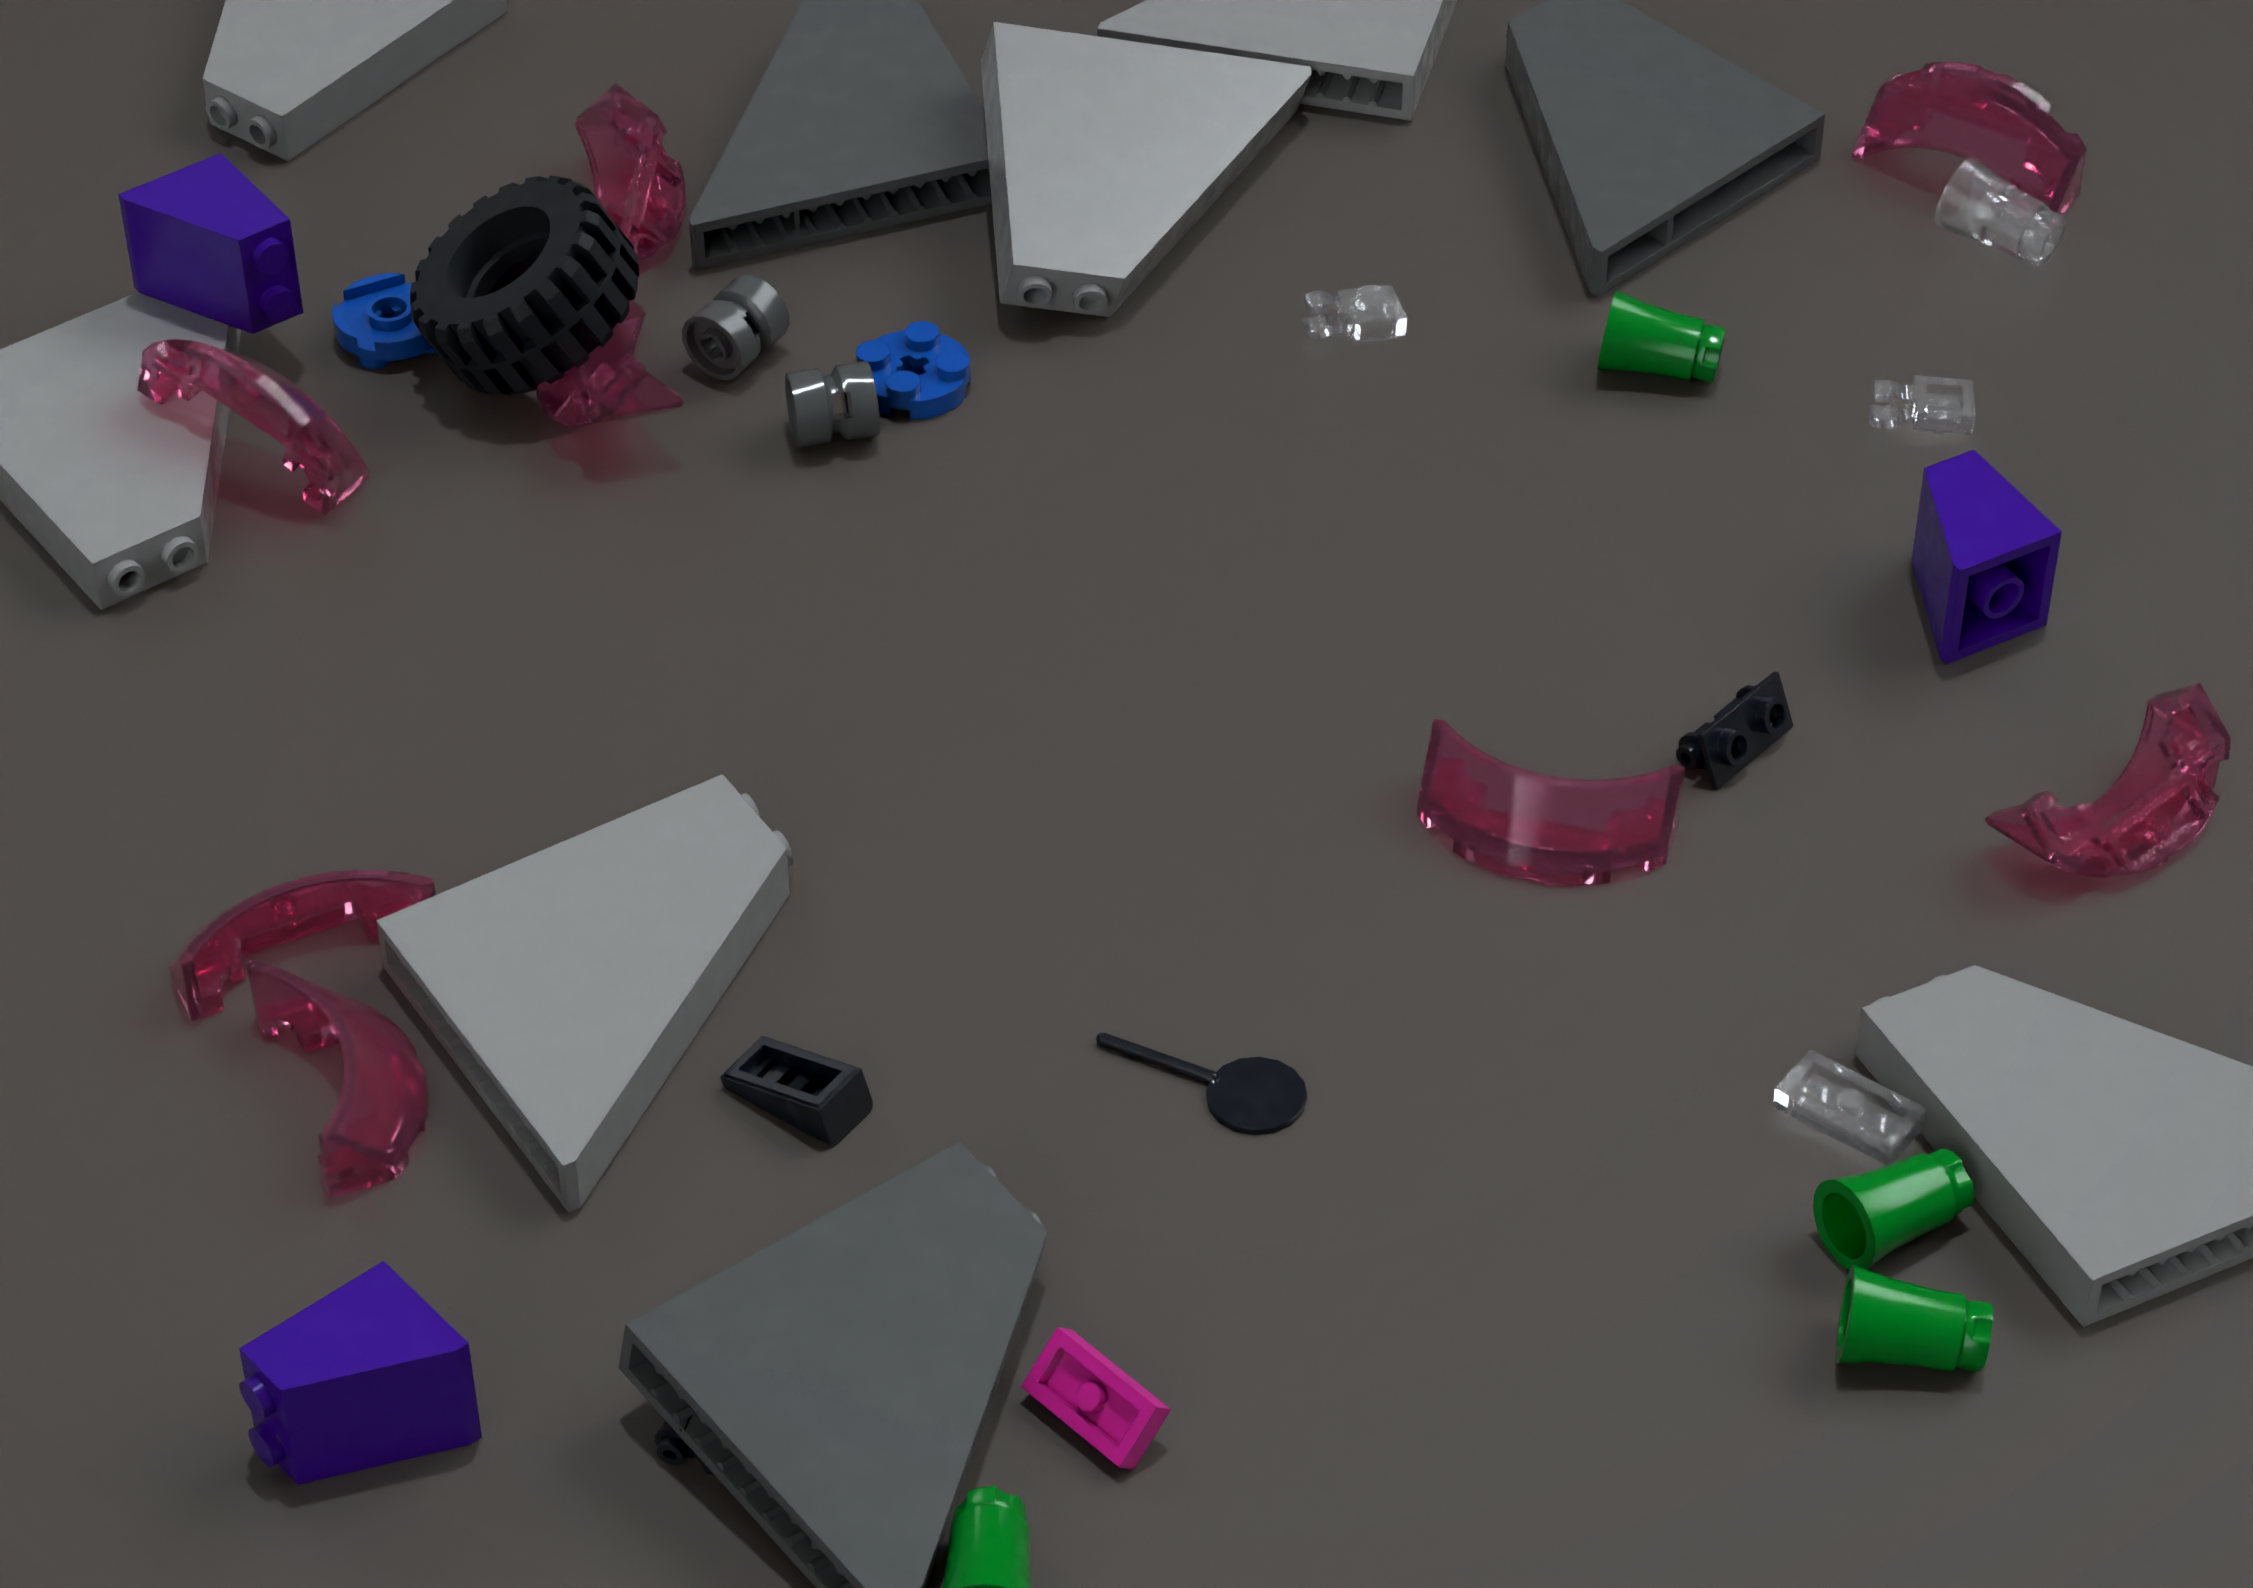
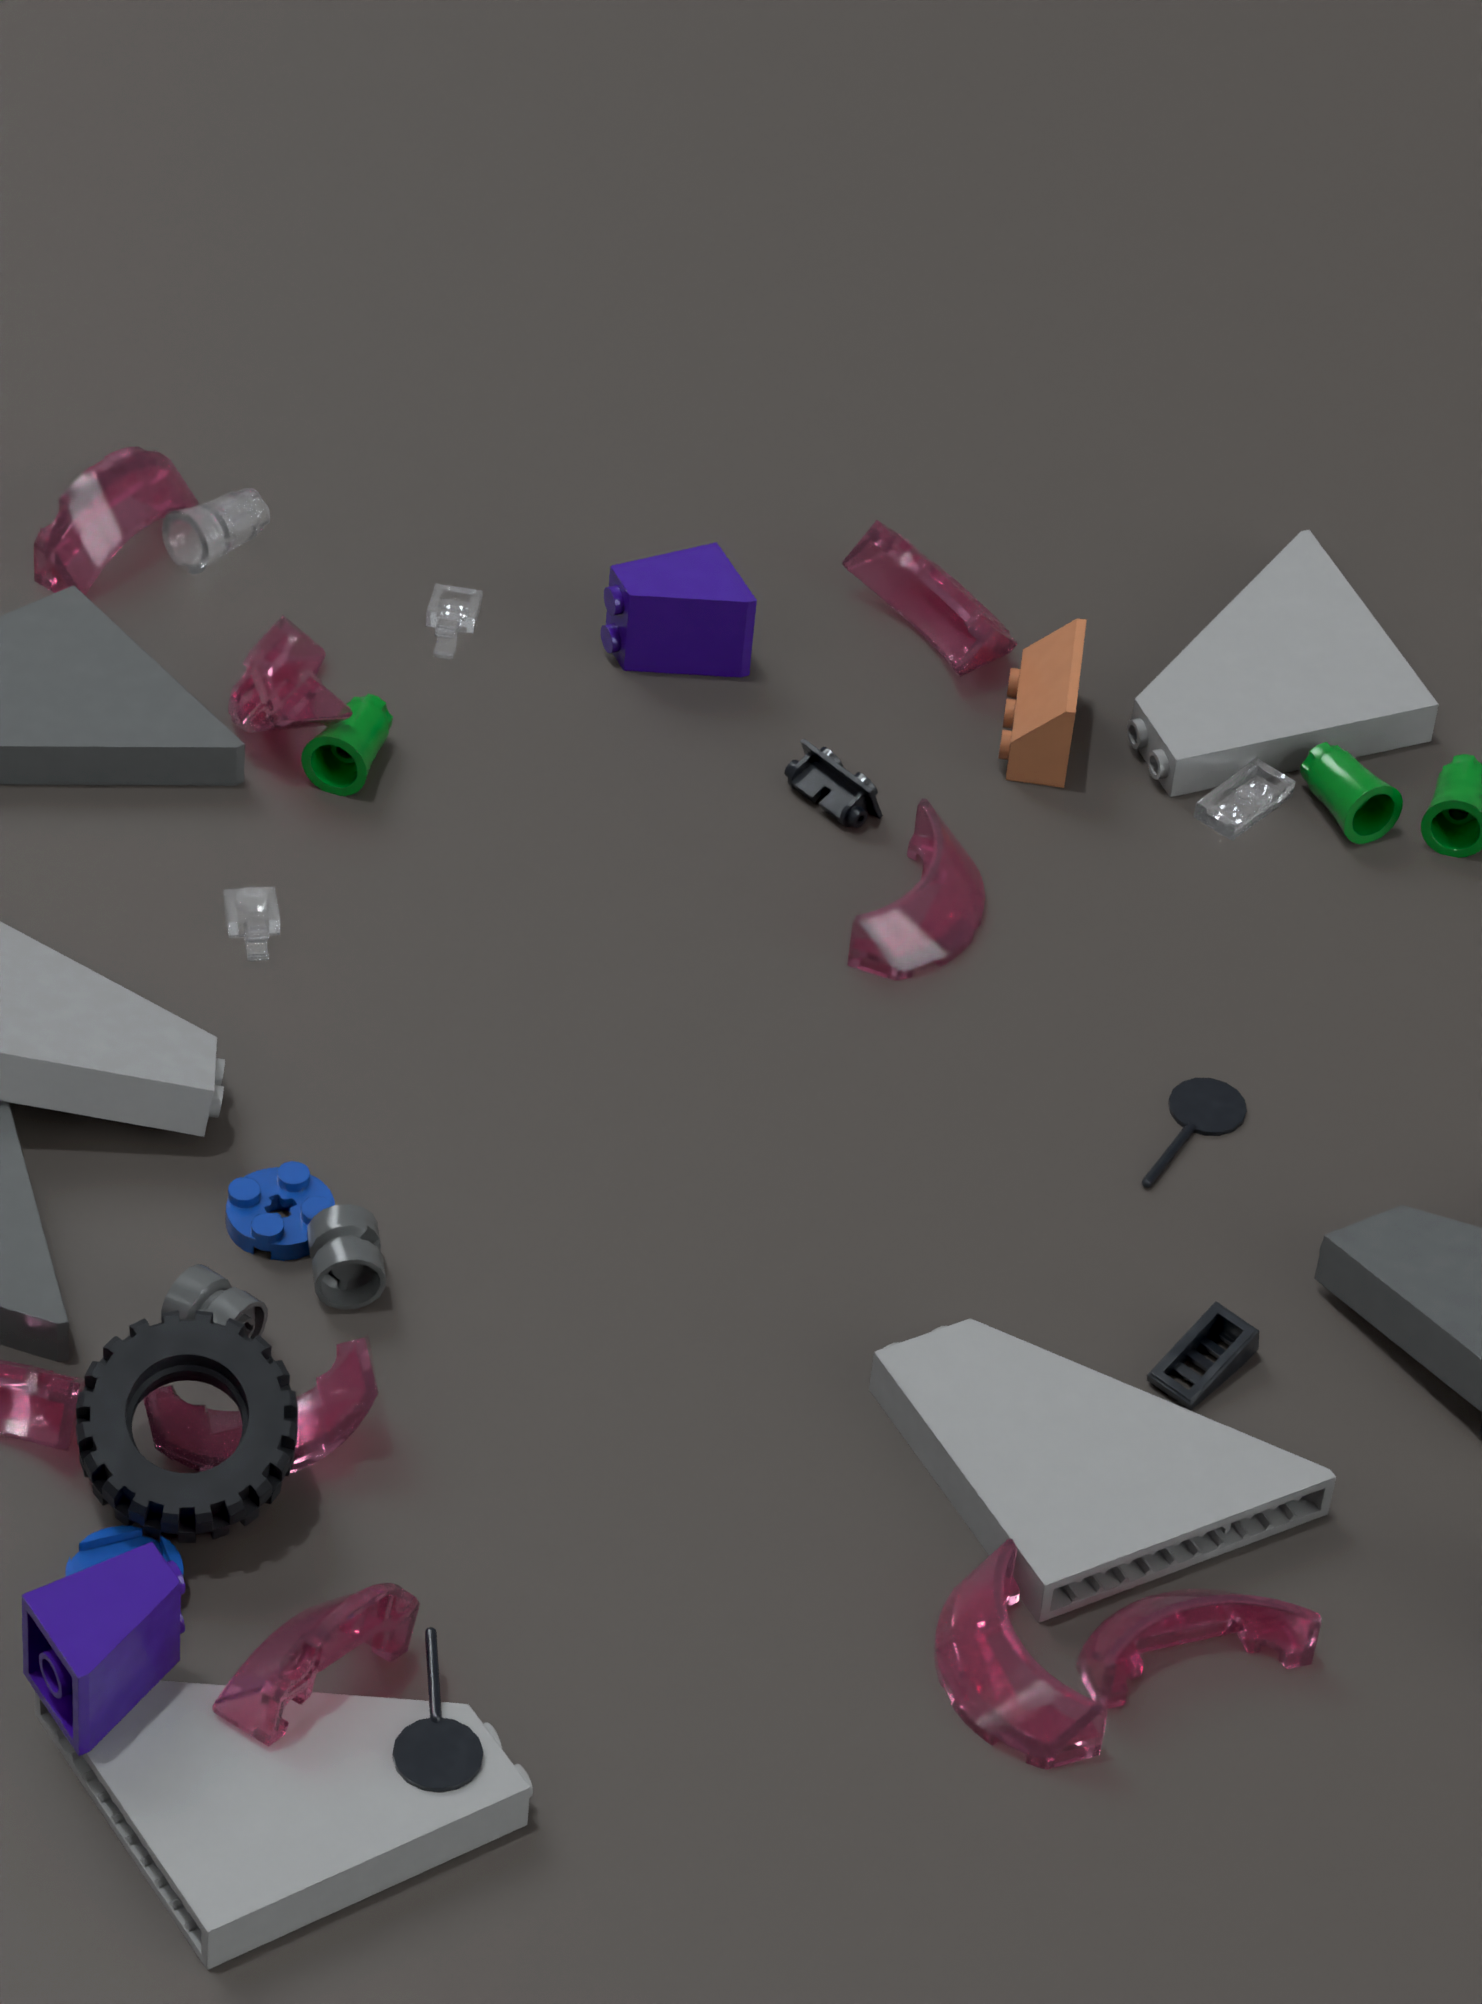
camera: 90 degrees left, 0 degrees up
(144, 497) = (437, 1751): none -> black piece
(1728, 286) = (283, 685): none -> clear pink windscreen
(1938, 902) = (1043, 707): none -> nougat slope

